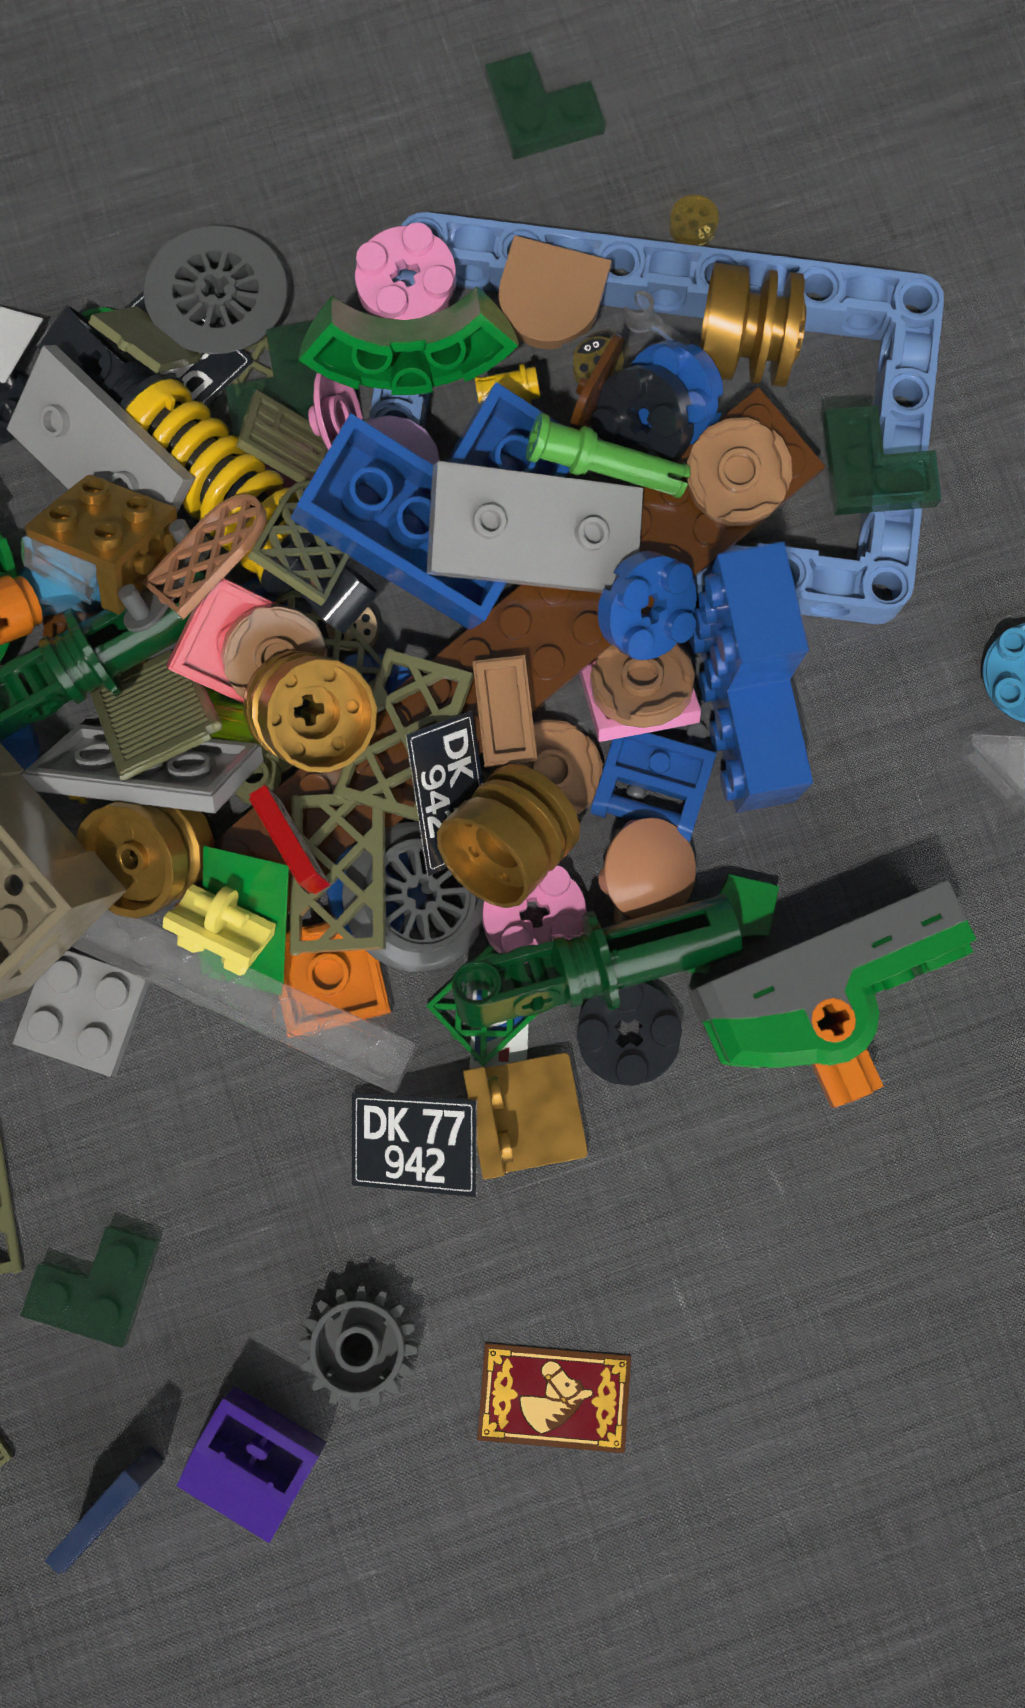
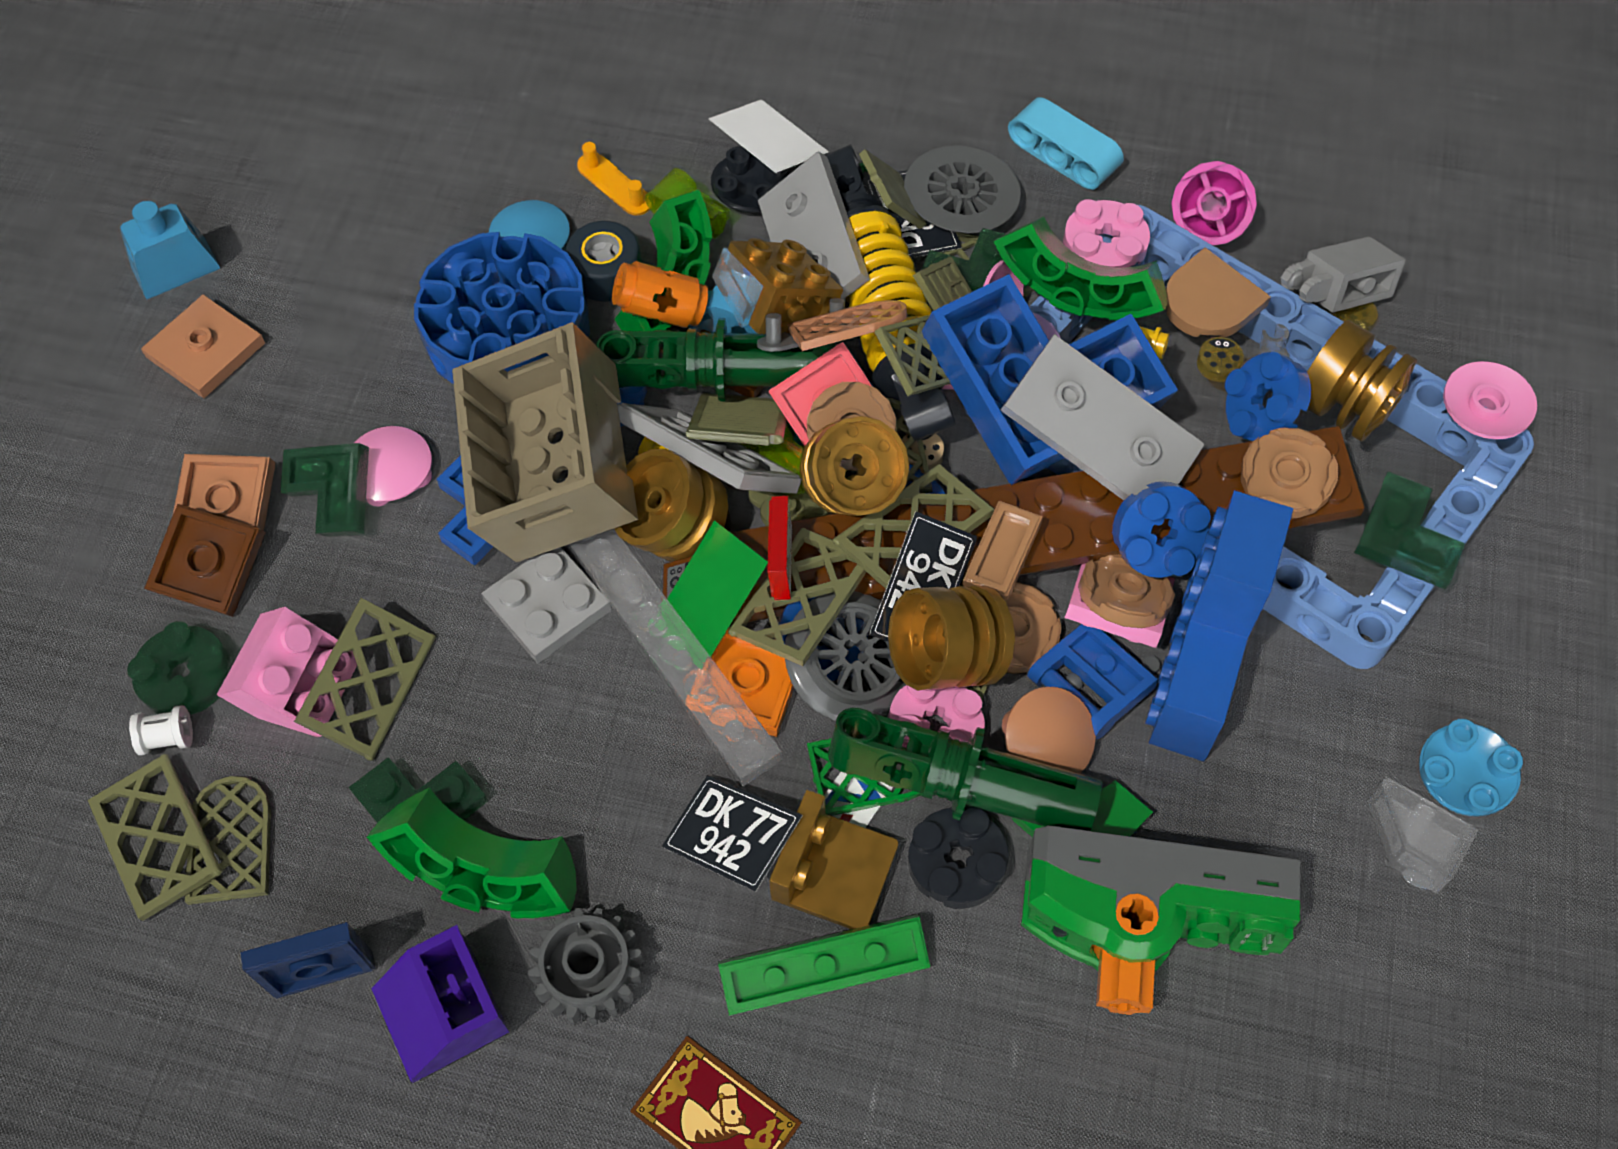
camera: 30 degrees right, 20 degrees down
(192, 1314) = (473, 865): none -> green brick
(220, 927) = (689, 580): light yellow hips -> none
(290, 167) = (1065, 143): none -> medium azure beam
(492, 169) = (1214, 202): none -> dark pink cylinder
(538, 119) = (1278, 200): clear green plate -> none
(568, 1210) = (823, 964): none -> green tile
(584, 452) = (1171, 390): bright green pin -> none
(590, 389) = (1206, 362): reddish brown piece -> none
(661, 395) = (1214, 396): black plate -> none
(667, 183) = (1346, 274): none -> light grey hinge
(889, 249) = (1503, 392): none -> bright pink dish

